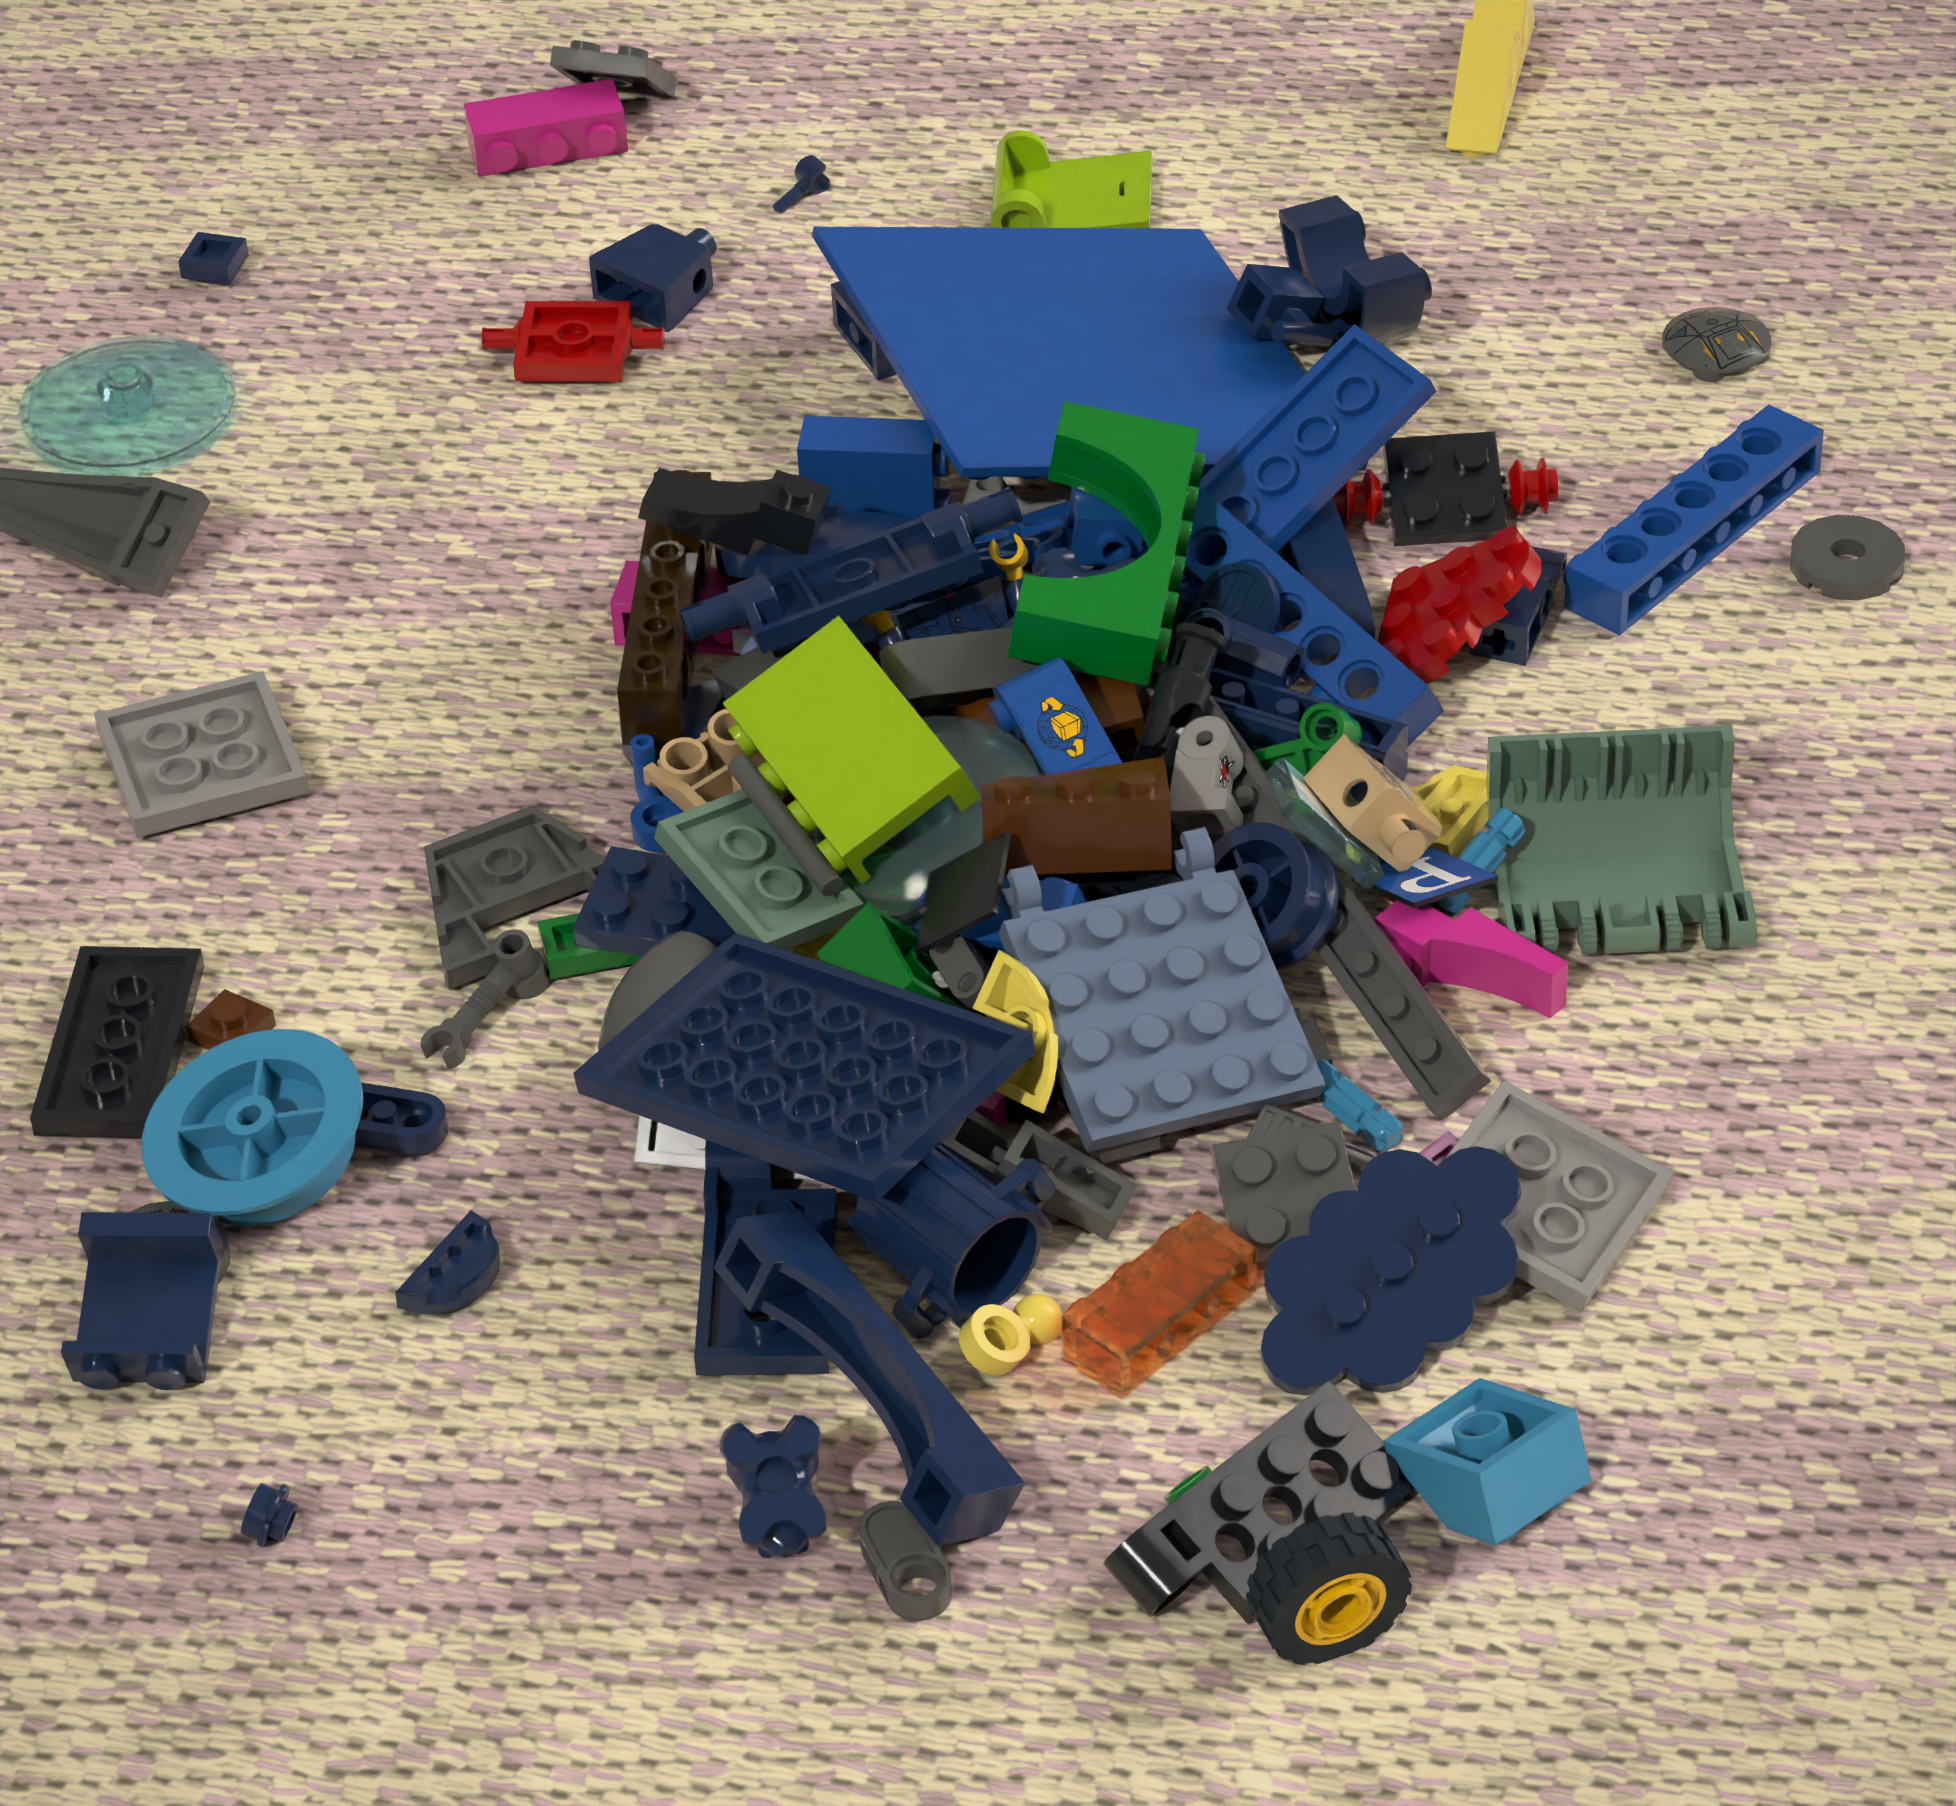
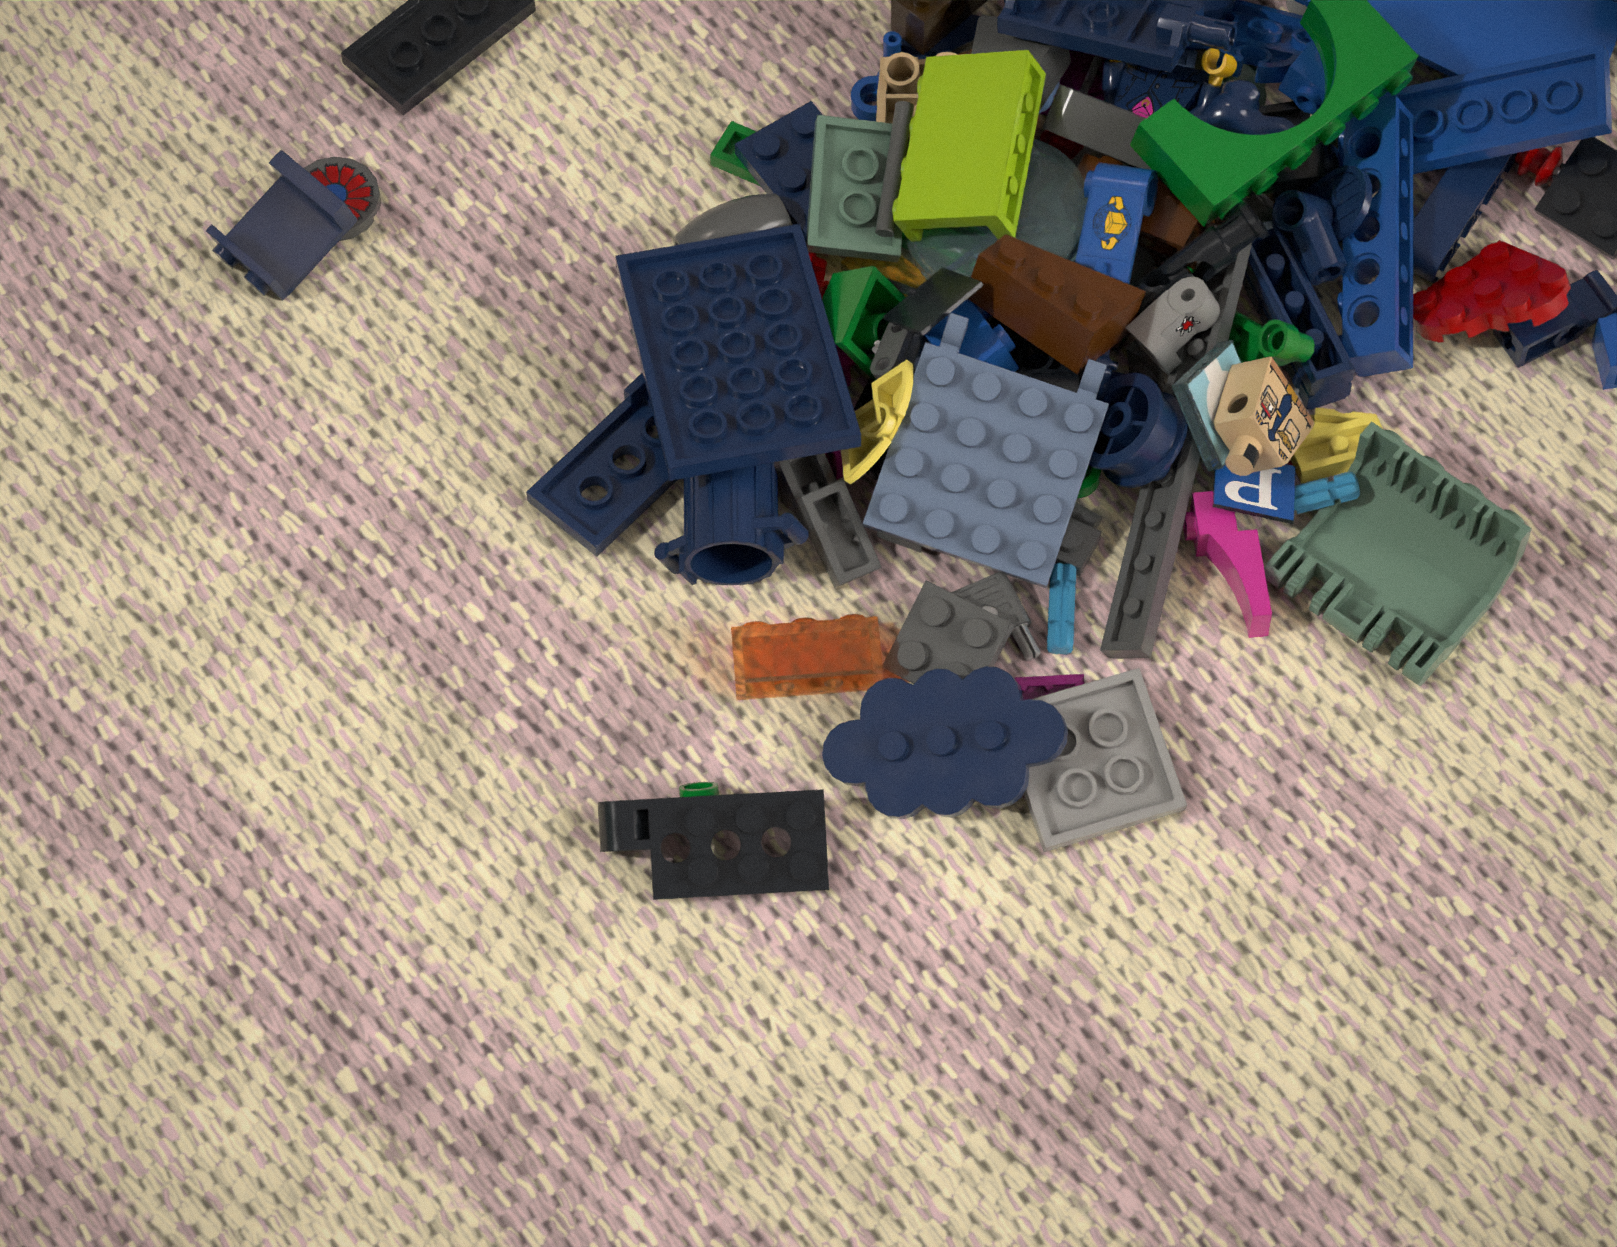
camera: 40 degrees right, 20 degrees up
(228, 1018) = (510, 65): reddish brown plate -> none
(255, 1127) = (436, 154): dark azure piece -> none
(269, 1514) = (227, 416): dark blue plate -> none
(401, 1120) = (528, 199): dark blue plate -> none
(455, 1270) = (468, 330): dark blue plate -> none
(499, 874) = (744, 67): dark grey wing -> none
(518, 974) = (690, 144): dark grey brick -> none
(776, 1486) = (482, 606): dark blue animal -> none
(901, 1550) = (516, 701): dark grey piece -> none
(954, 1473) = (606, 481): dark blue arch -> none
(1000, 1338) = (734, 611): light yellow plate -> none
(1328, 1588) = (687, 920): black wheel -> none
(1492, 1459) = (872, 908): dark azure slope -> none

